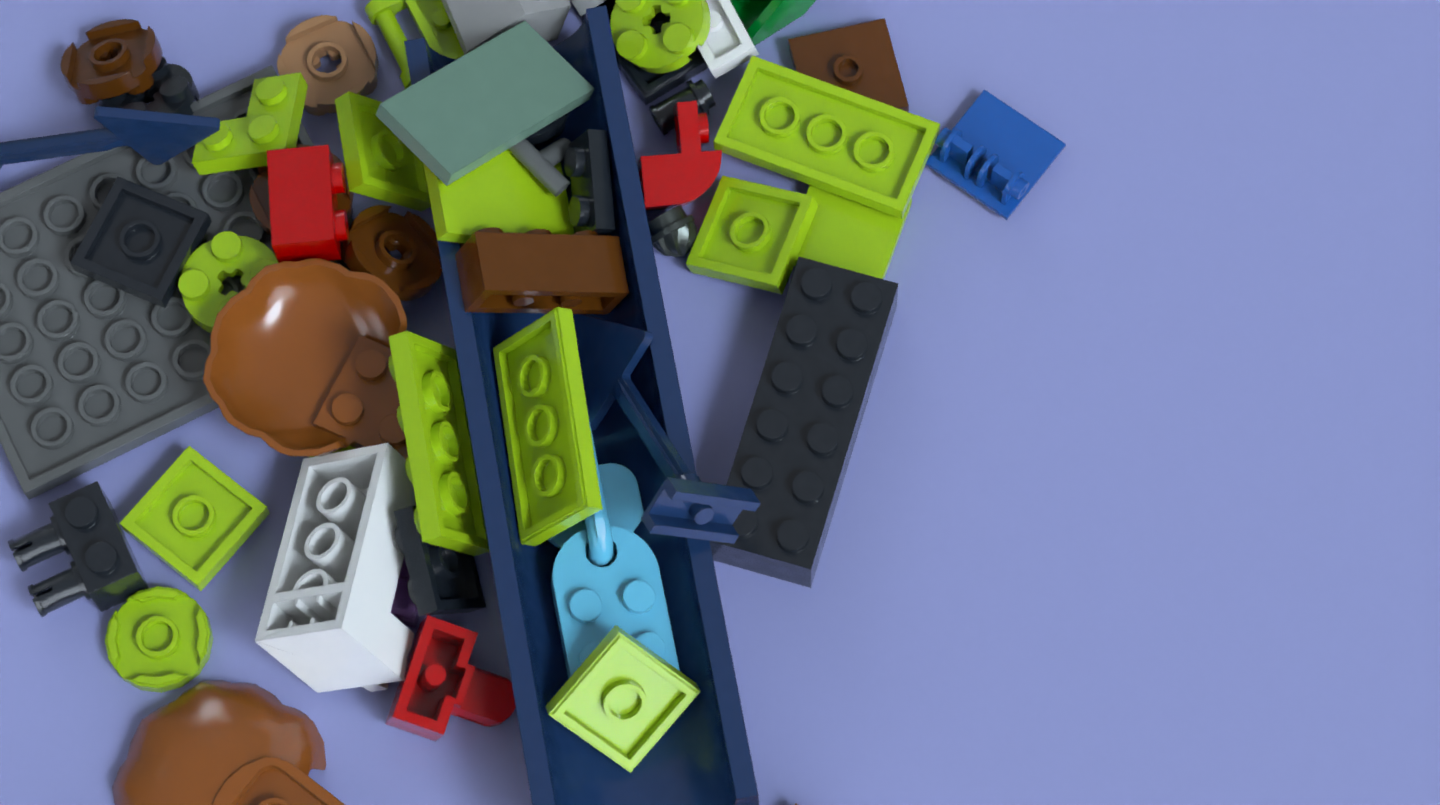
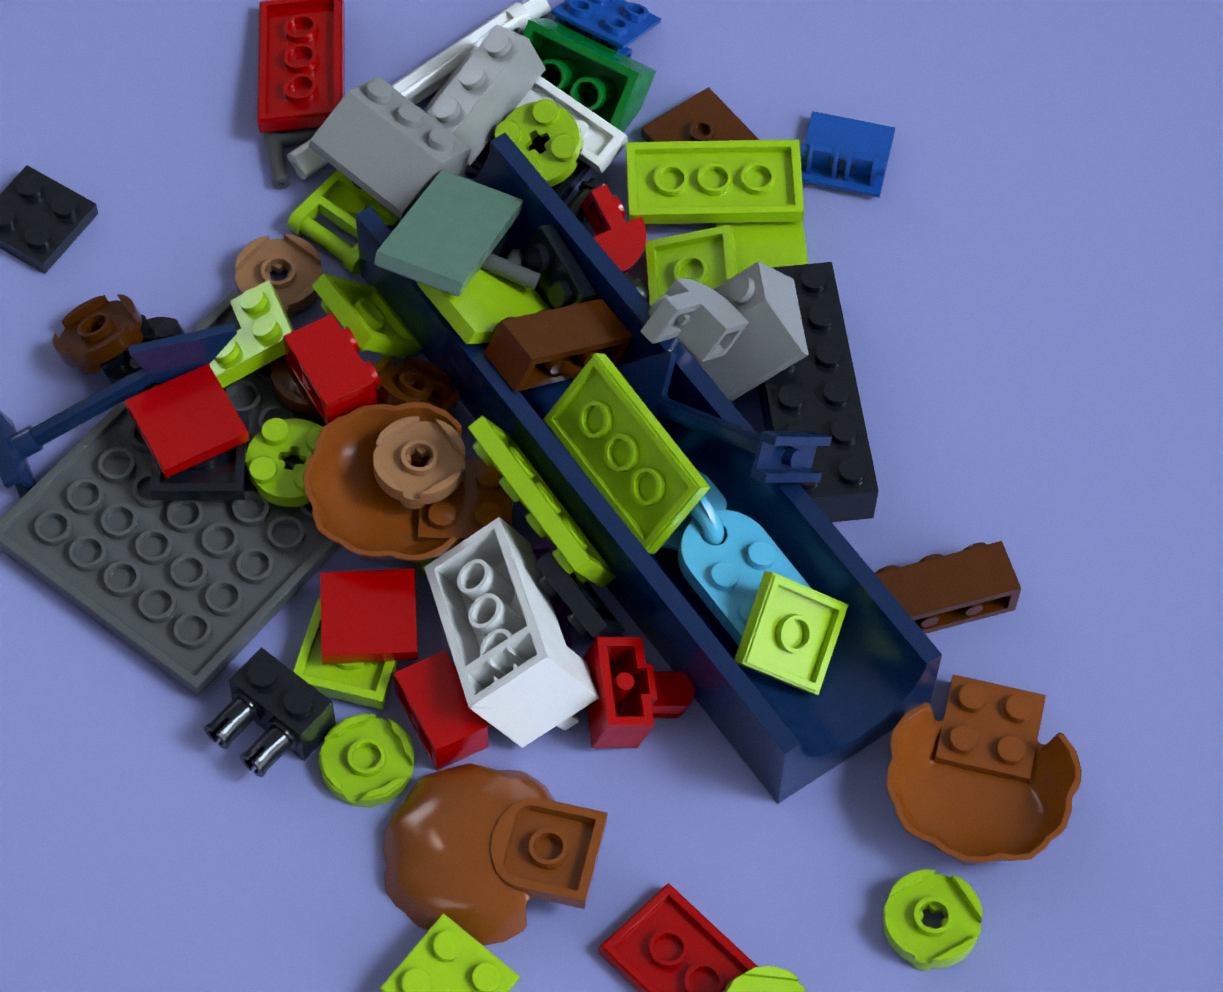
camera: 30 degrees left, 10 degrees down
(139, 201) = (187, 420): none -> red tile
(225, 488) = (368, 616): none -> red tile
(239, 607) = (439, 710): none -> red brick
(319, 327) = (414, 484): none -> medium nougat plate
(697, 304) = (697, 318): none -> light grey brick
(746, 332) = (771, 338): none -> light grey slope
(831, 705) = (955, 586): none -> reddish brown brick

